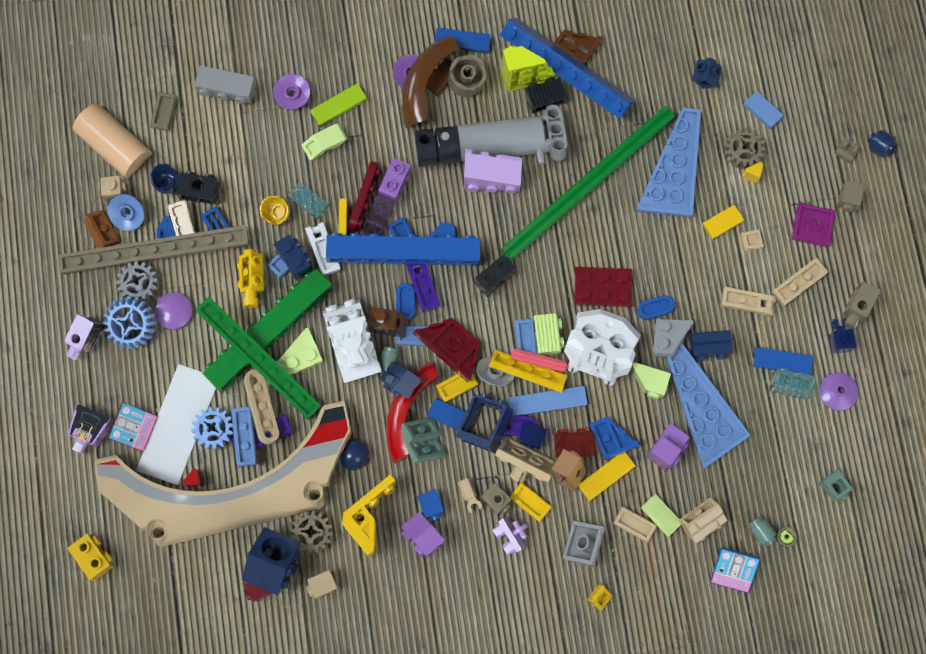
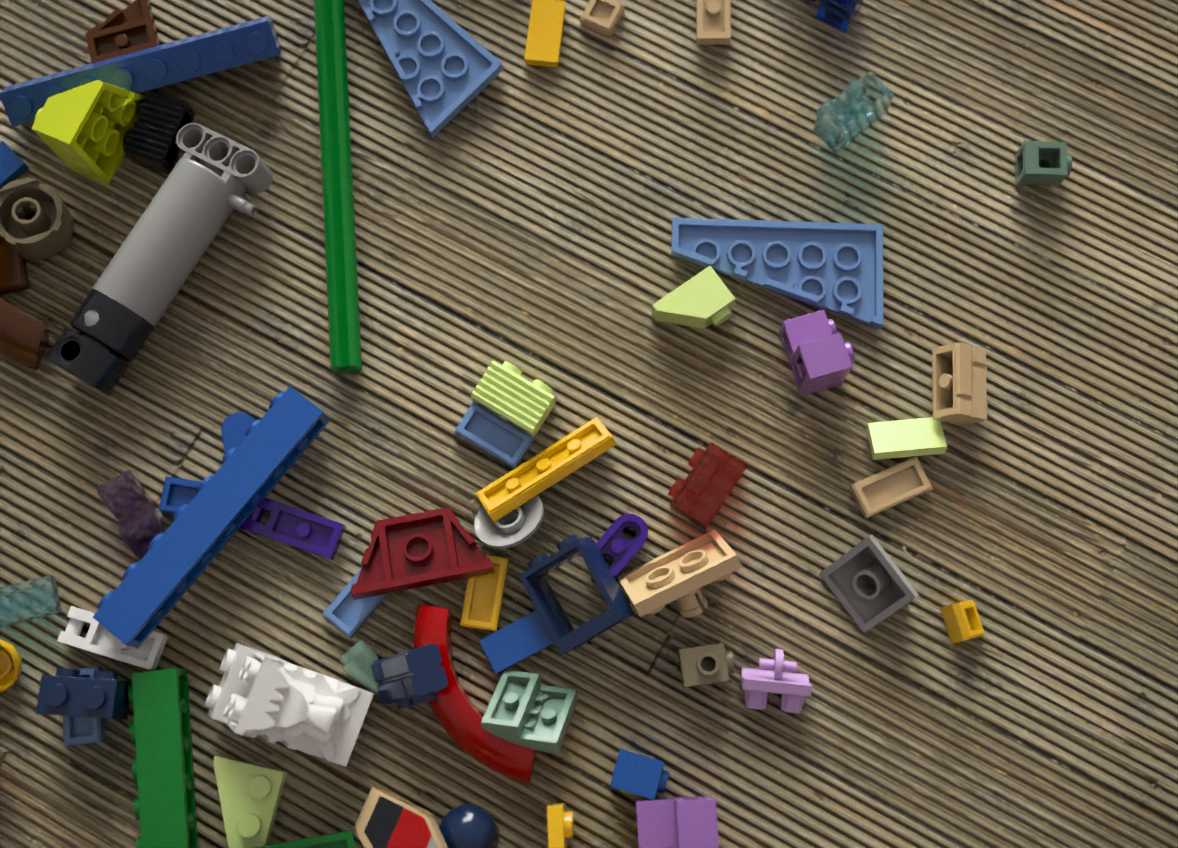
camera: 45 degrees left, 0 degrees up
(252, 276) = (62, 784): yellow brick -> none
(343, 217) = (88, 567): yellow tile -> none
(362, 202) = (91, 522): dark red plate -> none
(384, 322) = (302, 629): reddish brown torso -> none
(395, 179) = (98, 445): medium lavender brick -> none
(405, 300) = (297, 573): blue tile -> none
(469, 494) = (664, 701): tan bar -> none
(492, 173) = (205, 292): lavender wedge -> none
(495, 275) = (364, 408): black brick -> none
(530, 502) = (745, 616): yellow tile -> none
(532, 435) = (648, 536): clear blue panel -> none
(538, 360) = (541, 441): coral axle -> none
(548, 401) = (613, 474): medium blue tile -> none
(569, 470) = (743, 520): medium nougat brick -> none
(598, 354) = (601, 345): white brick -> none
(603, 287) = (505, 267): dark red plate -> none
(606, 476) = (788, 474): yellow tile -> none
(611, 438) = (740, 424): blue wing -> none
(655, 307) = (594, 216): blue tile -> none
(669, 336) = (653, 226): light grey wing -> none
(710, 344) = (709, 180): dark blue brick -> none
(735, 570) = (1064, 394): piece -> none
(747, 301) = (685, 84): tan plate -> none
(762, 531) = (1034, 313): sand green brick -> none
(777, 359) = (800, 107): blue tile -> none
(786, 537) = (1064, 287): tile -> none
(830, 395) = (906, 75): medium lavender dish -> none

